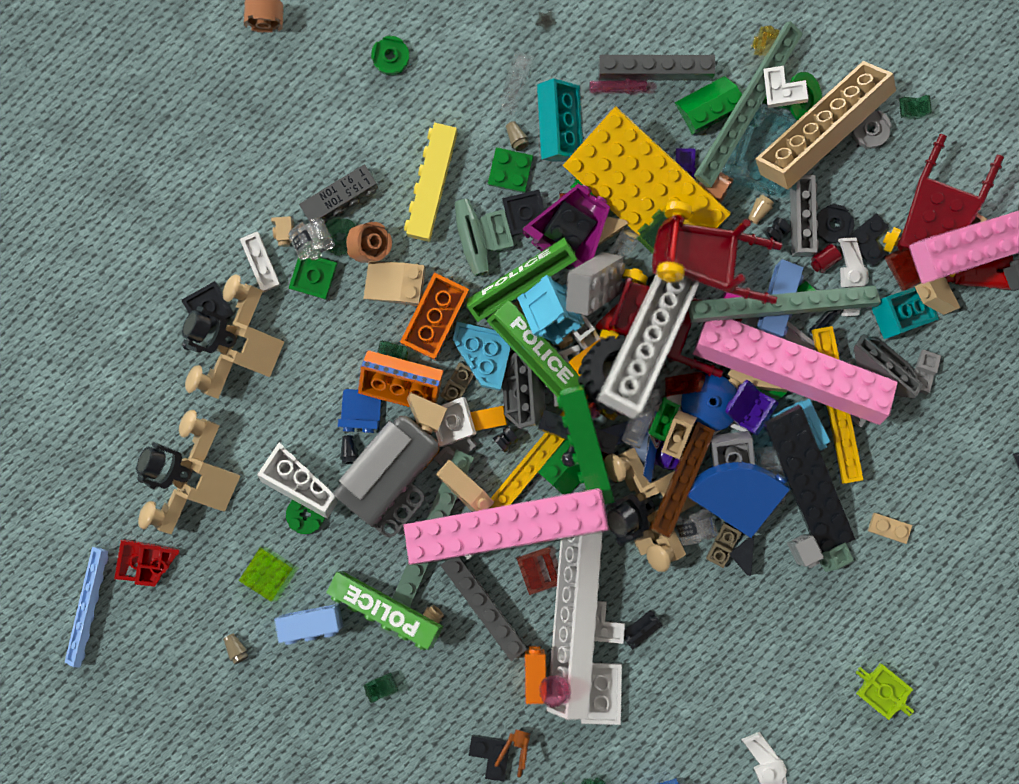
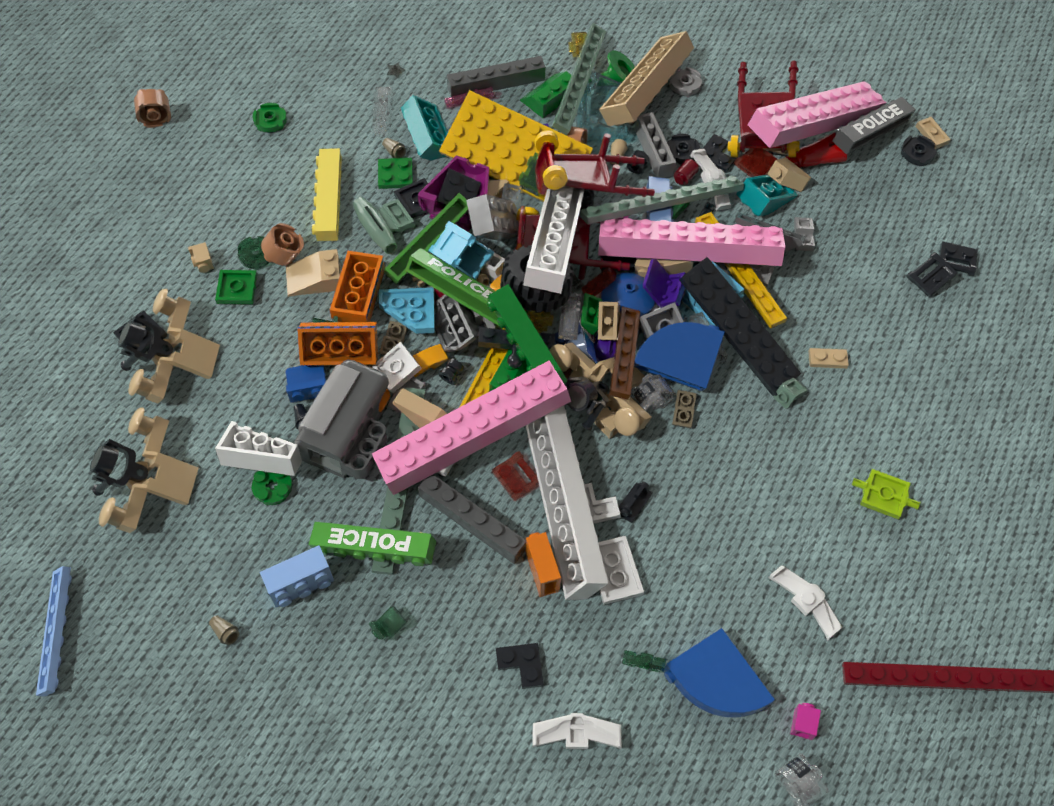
camera: 20 degrees left, 25 degrees down
(150, 559) = (117, 566): red slope -> none
(260, 262) = (184, 287): white plate -> none
(265, 574) = (242, 551): clear neon green plate -> none
(311, 239) = (228, 250): clear brick -> none
(340, 195) = (246, 221): dark grey brick -> none
(426, 413) = (368, 353): tan slope -> none
(520, 740) = (548, 636): dark orange plant -> none
(555, 691) = (566, 557): clear pink hair -> none
(744, 555) = (706, 410): black slope -> none
(783, 93) = (603, 60): white plate -> none
(805, 550) = (759, 387): light grey brick -> none
(915, 107) = (714, 61): clear green bracket -> none

